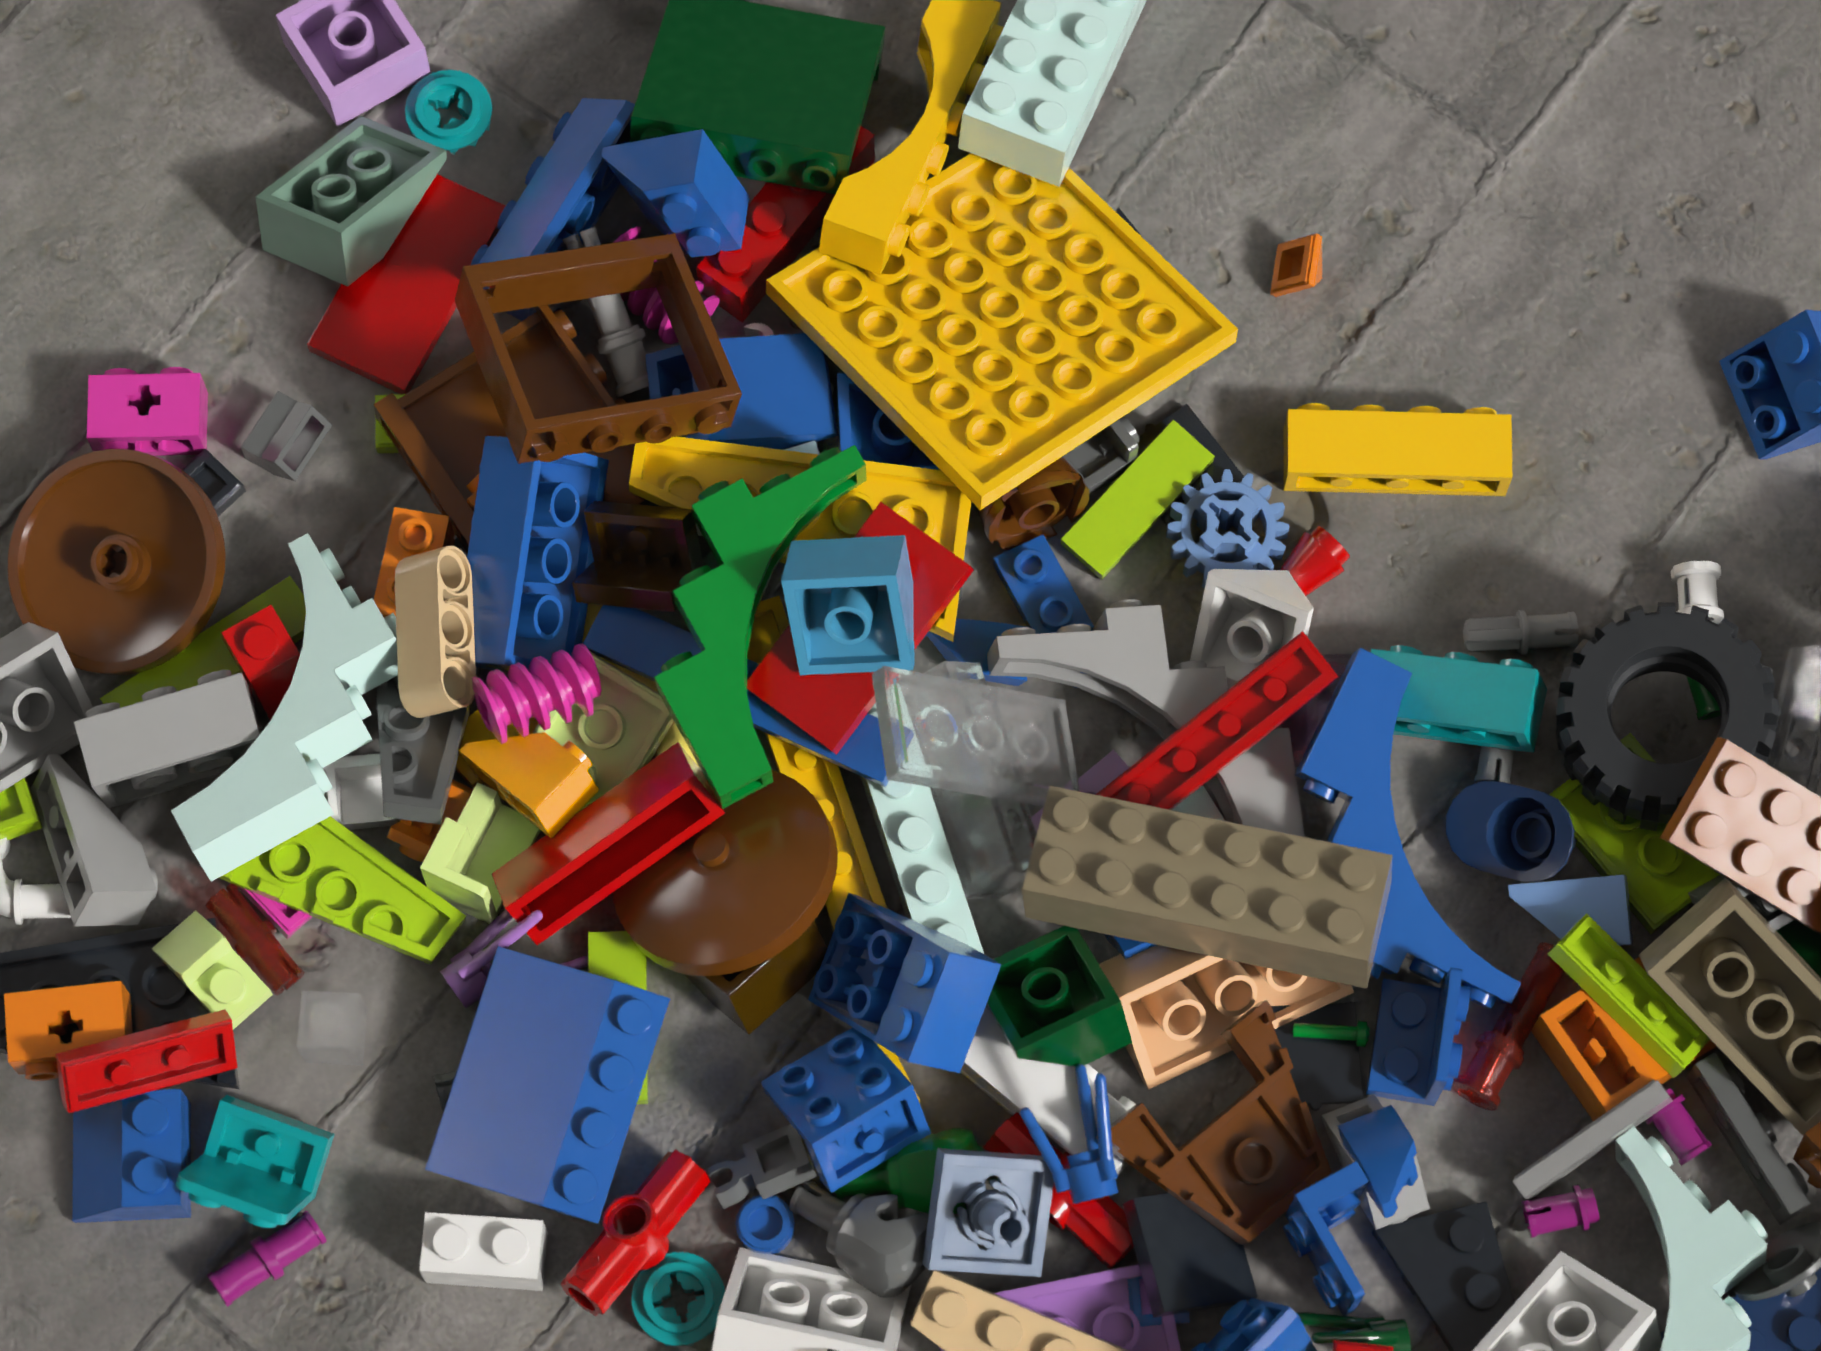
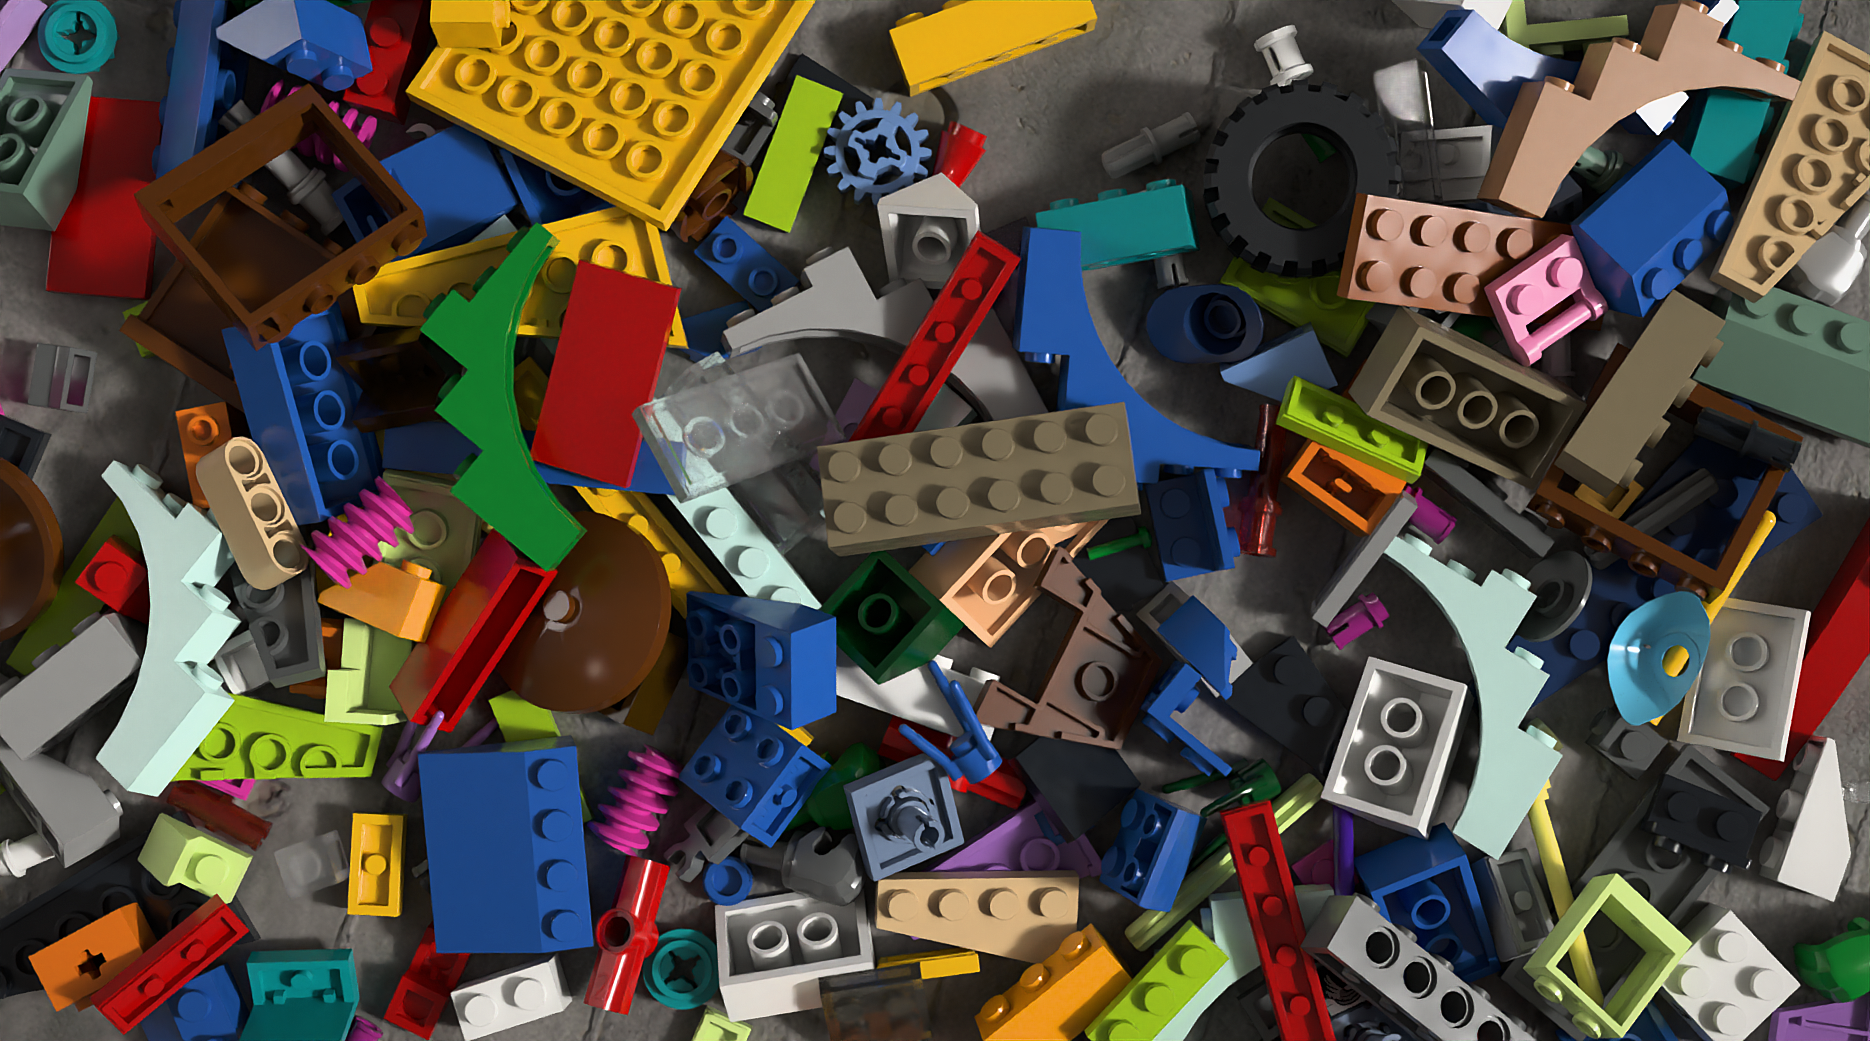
camera: 25 degrees left, 15 degrees up
(396, 1209) = (426, 987): none -> red slope
(398, 1057) = (377, 864): none -> yellow plate
(703, 1094) = (638, 800): none -> dark pink piece
(850, 604) = (588, 362): dark azure slope -> none

